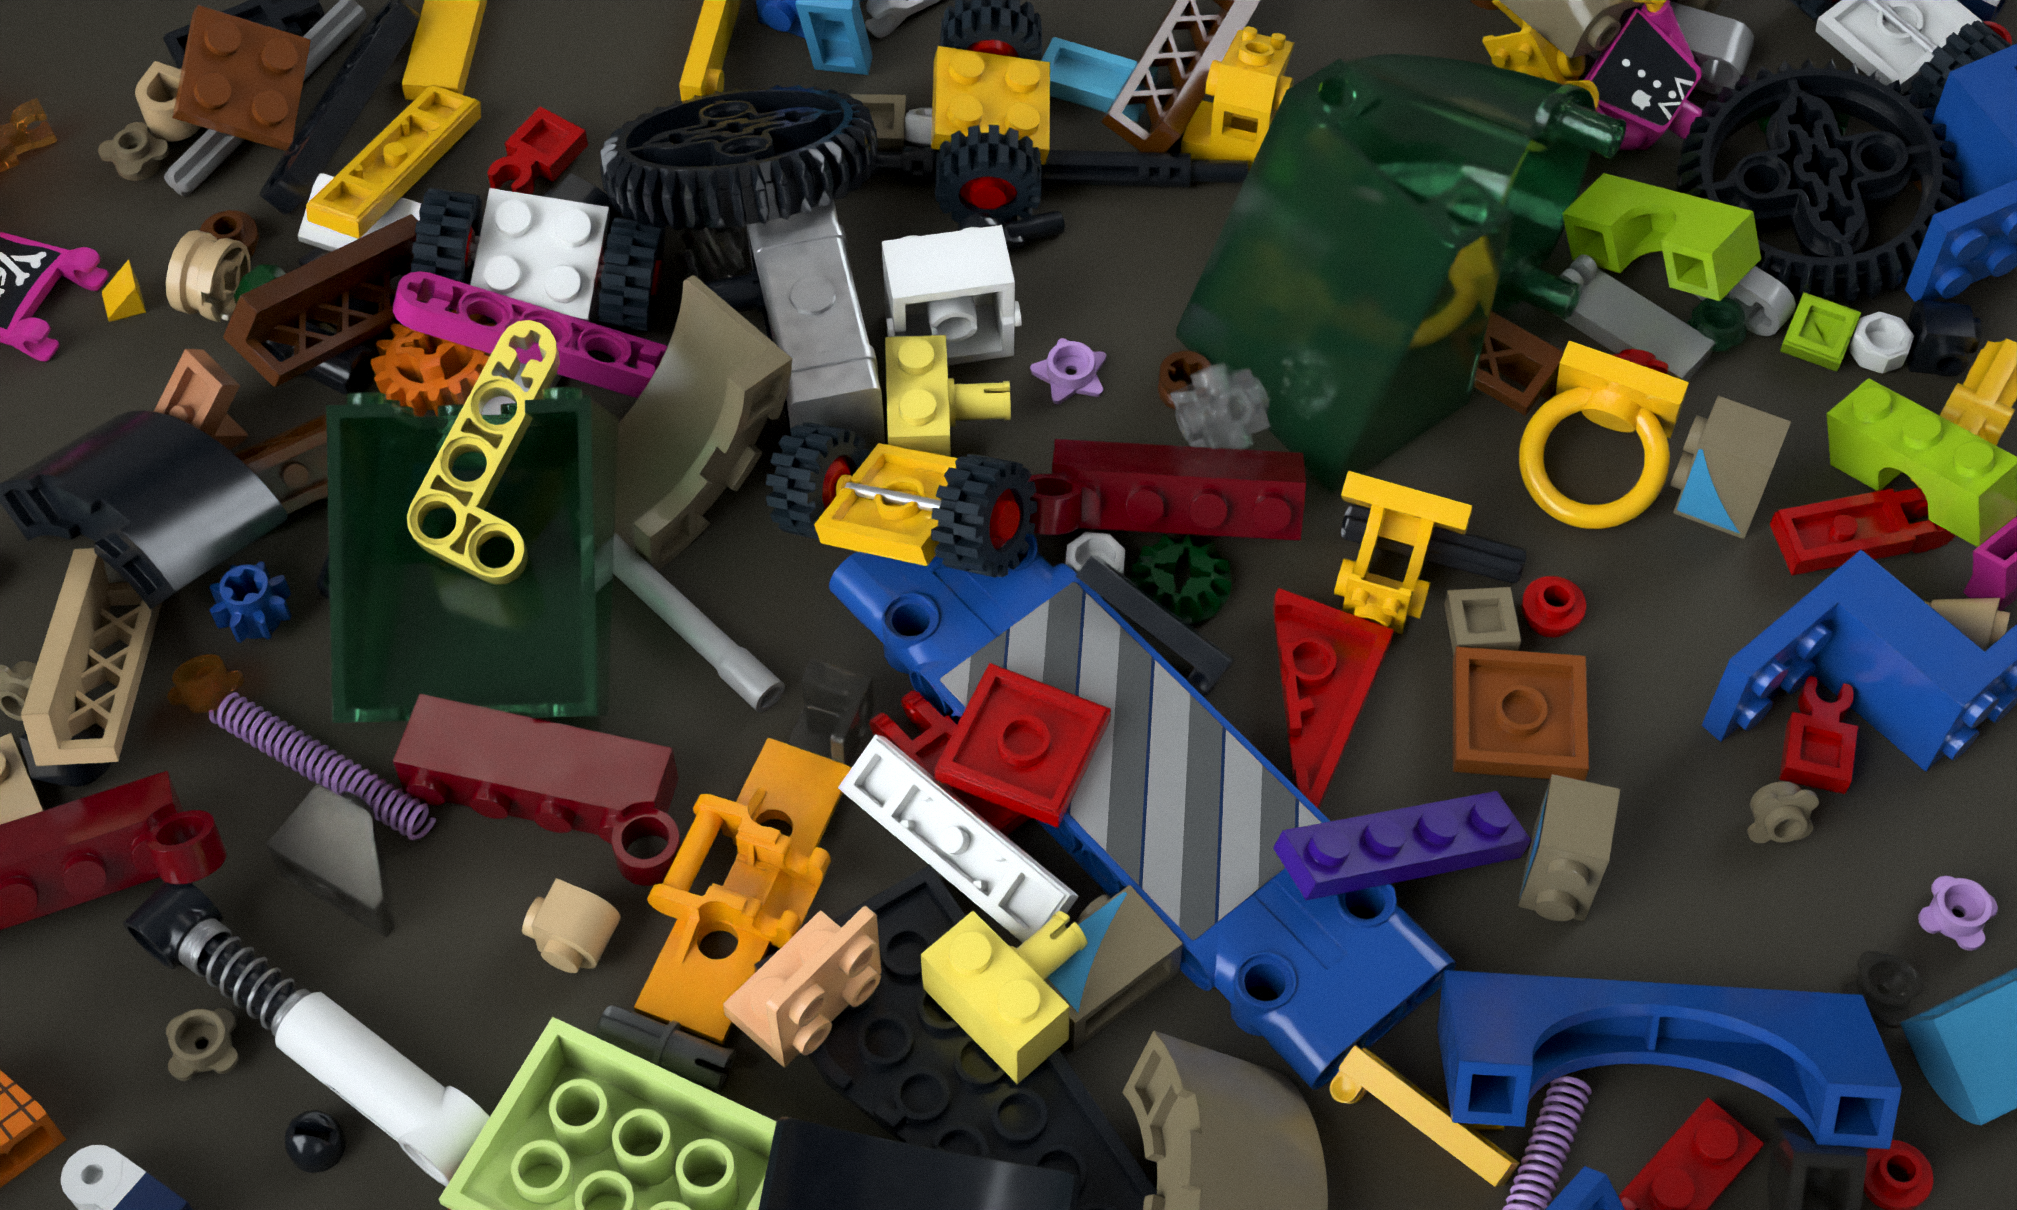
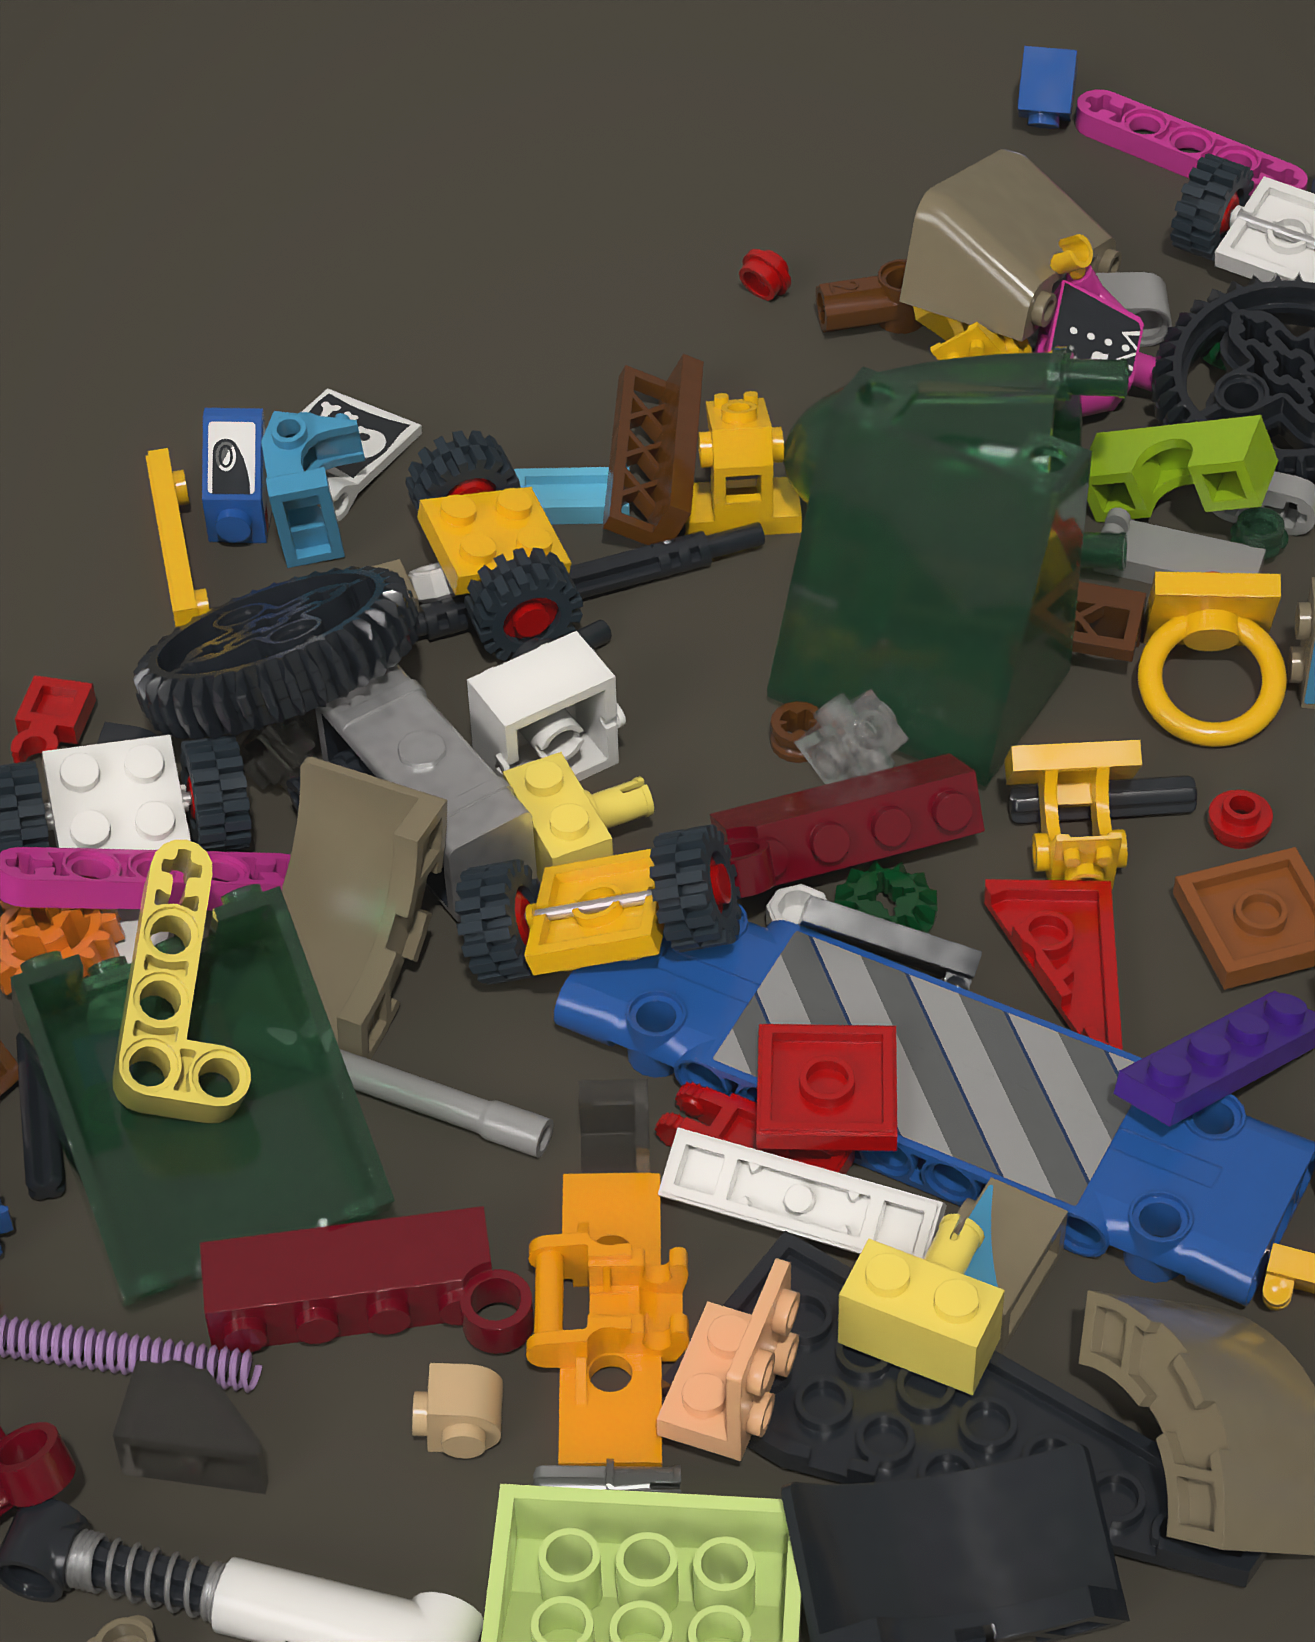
camera: 20 degrees left, 10 degrees down
(1071, 356) = (682, 743): lavender plate -> none
(1482, 618) = (1183, 847): dark tan plate -> none

